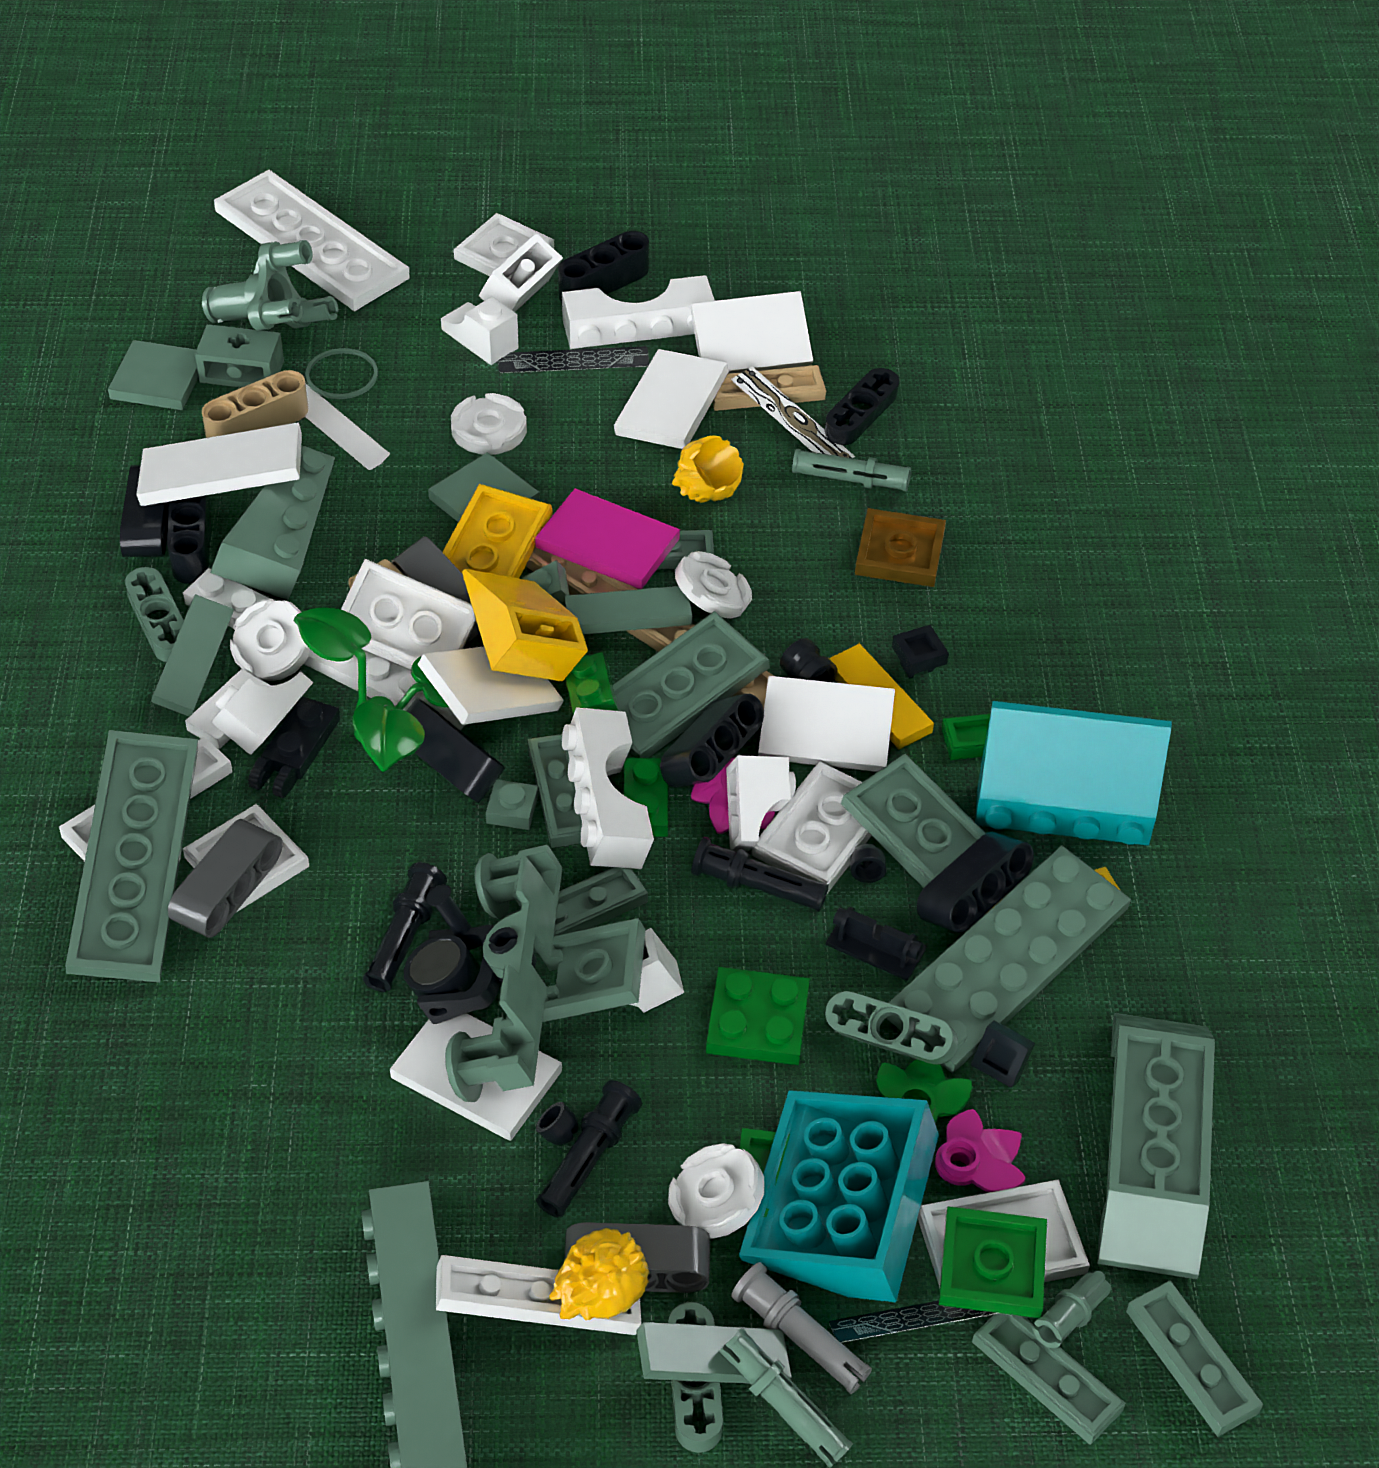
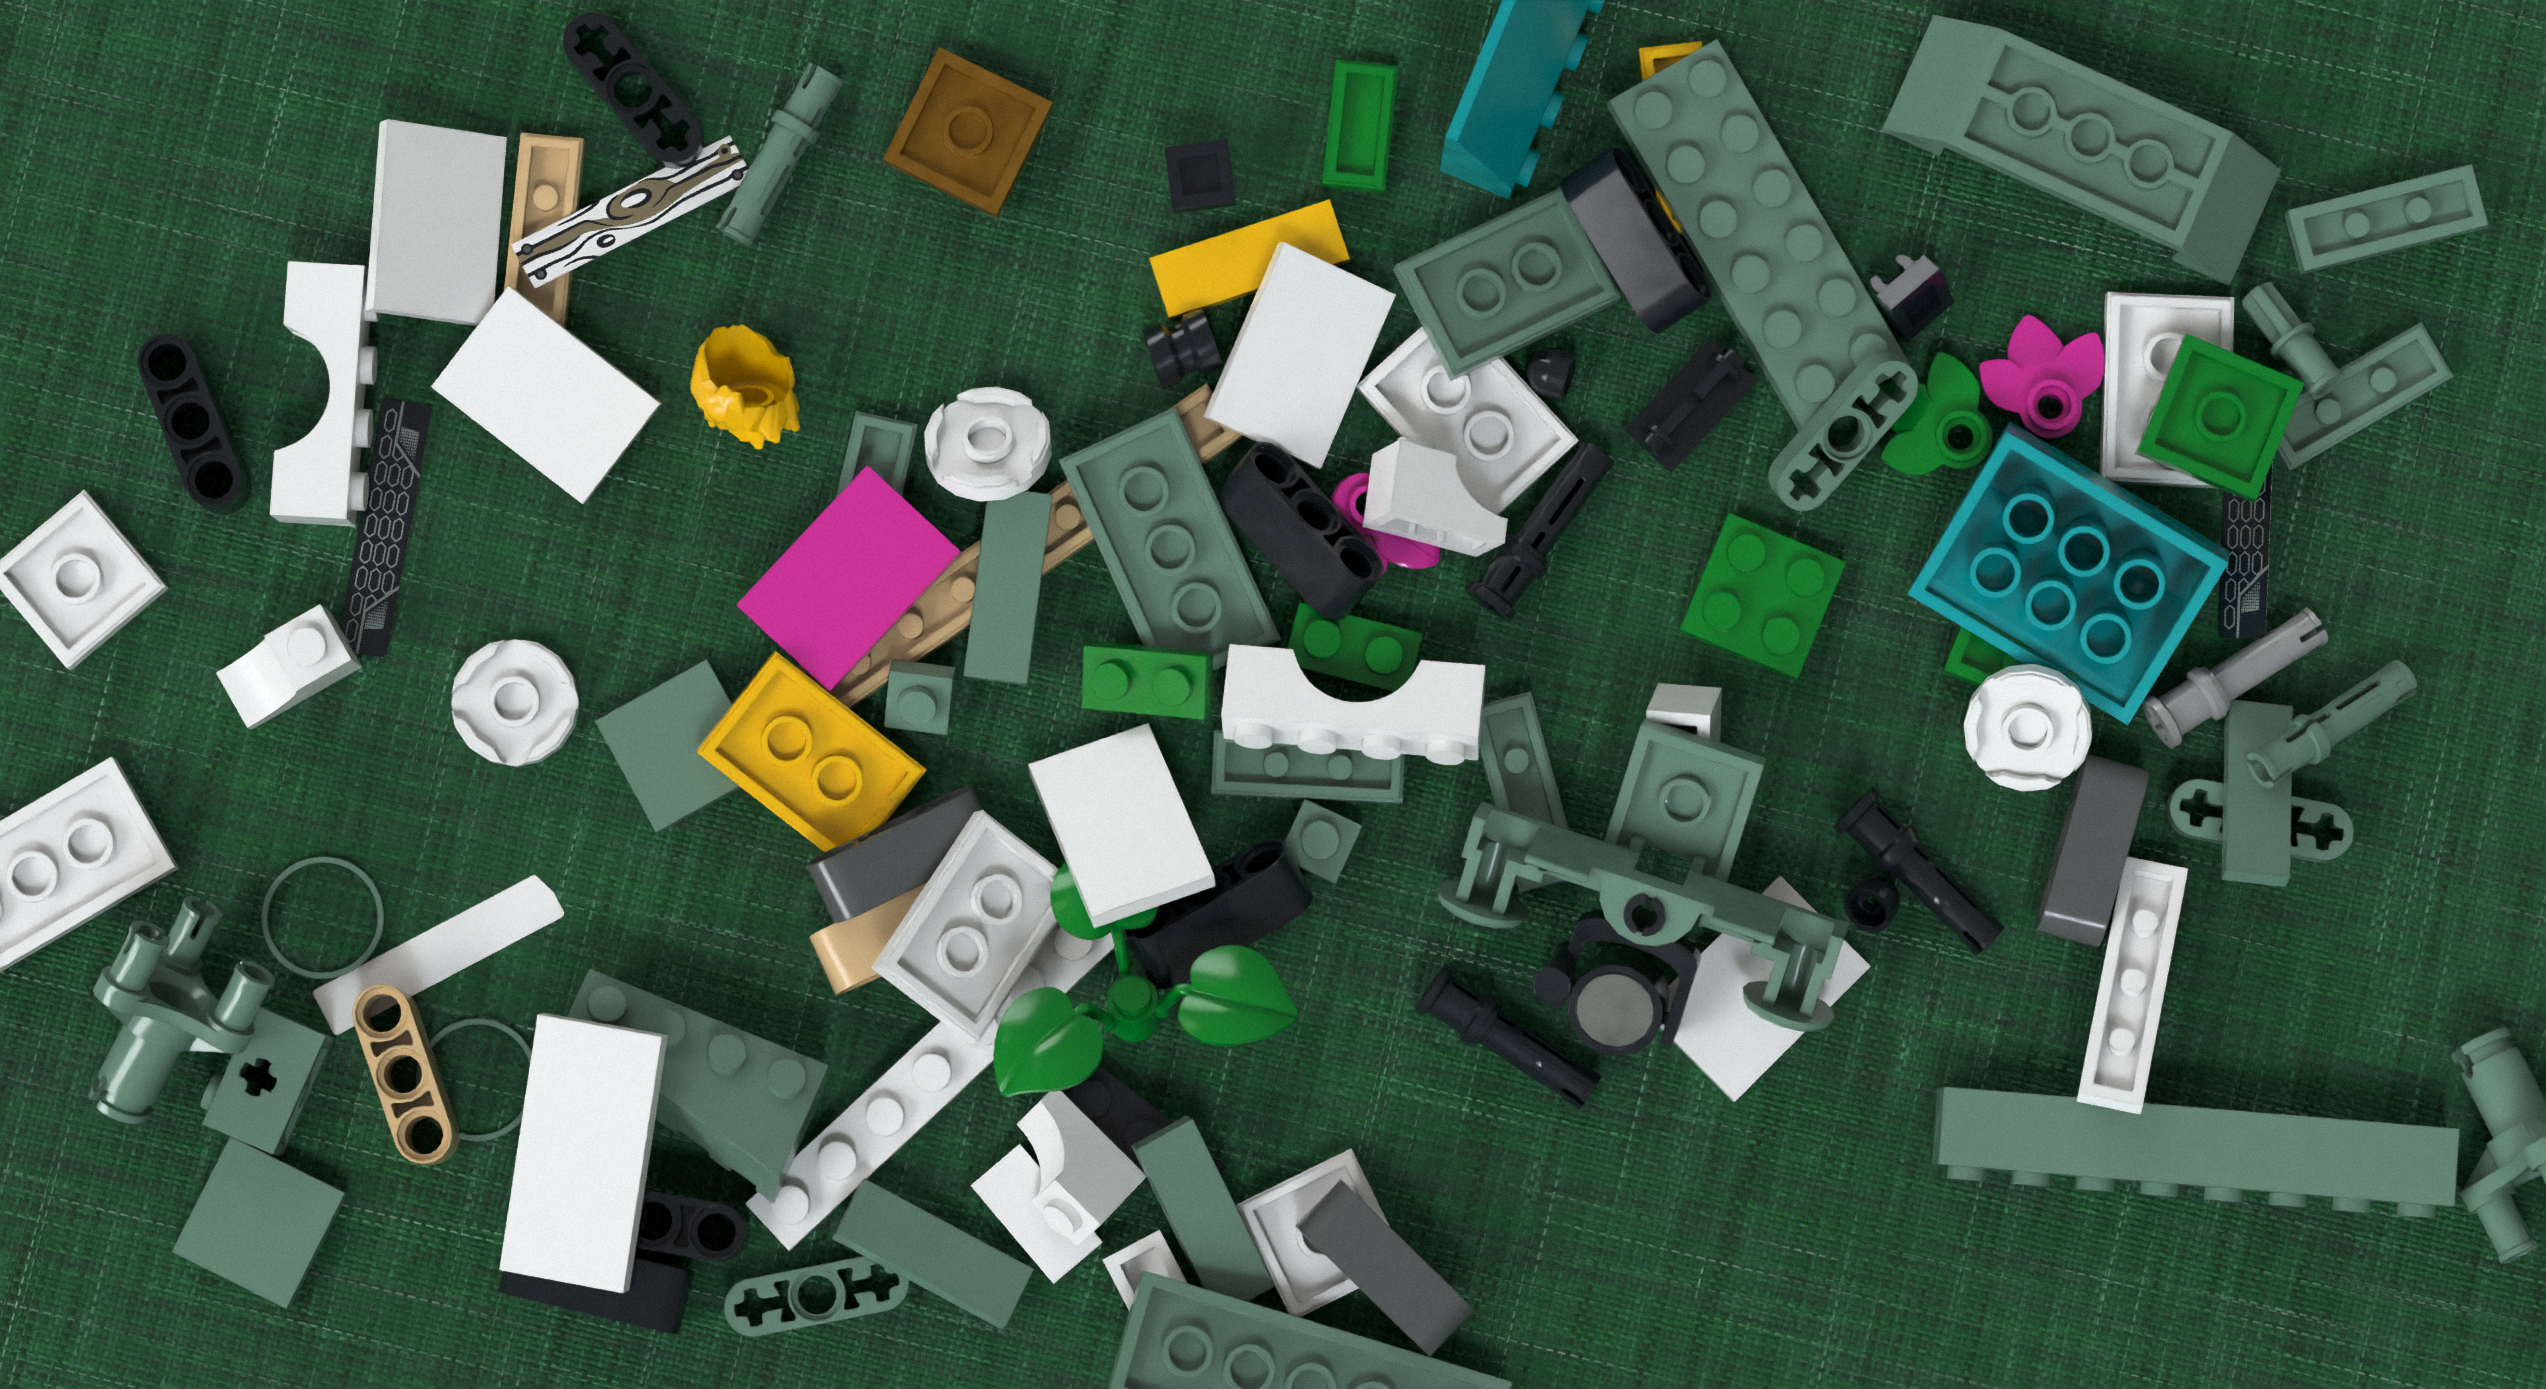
camera: 75 degrees left, 35 degrees up
(245, 777) = (1202, 1211): none -> sand green tile
(269, 640) = (933, 1132): white tile -> none
(522, 273) = (203, 573): white brick -> none
(524, 626) = (1030, 754): yellow slope -> none
(601, 1276) = (2140, 903): yellow hair -> none

